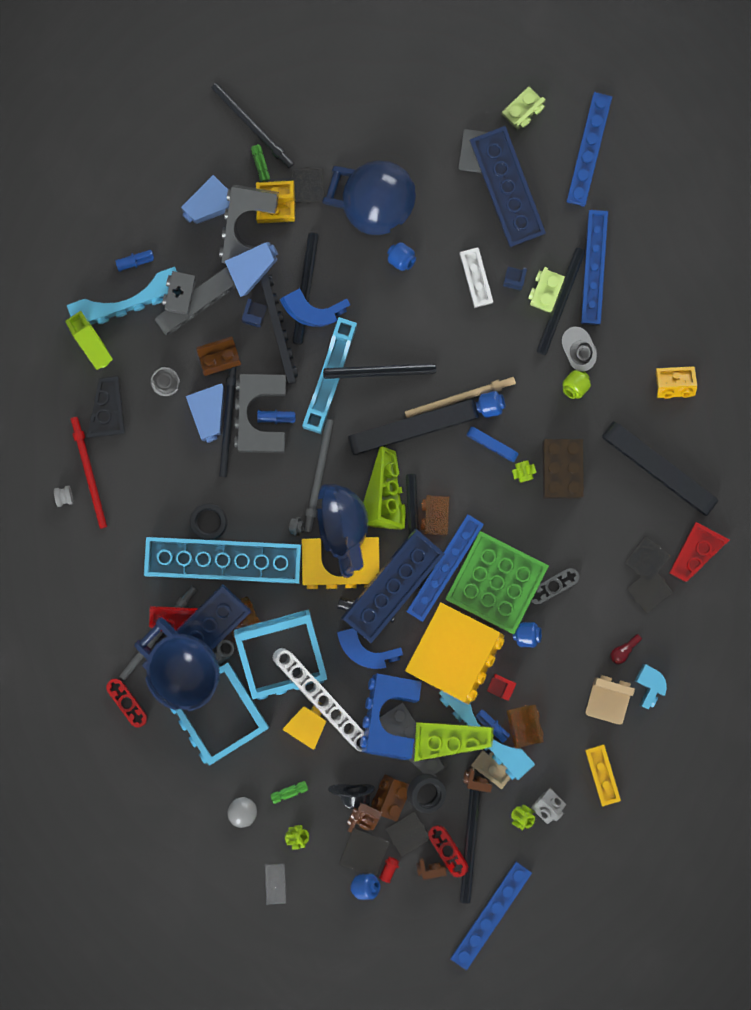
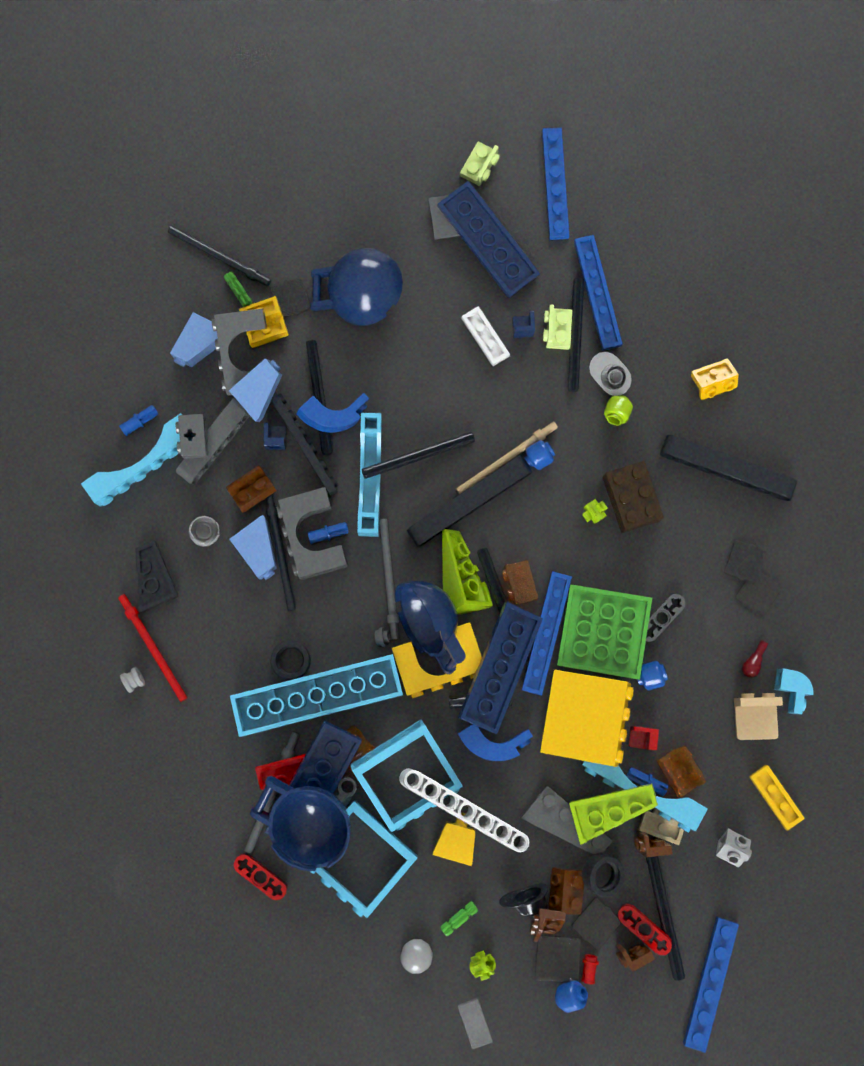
camera: 20 degrees left, 5 degrees down
(89, 340) = (113, 512): lime window -> none
(376, 739) = (534, 834): blue arch -> none
(401, 256) = (405, 337): blue head -> none
(492, 444) = (554, 494): blue beam -> none
(523, 817) = (710, 868): lime gear -> none
(696, 551) = (792, 537): red wing -> none

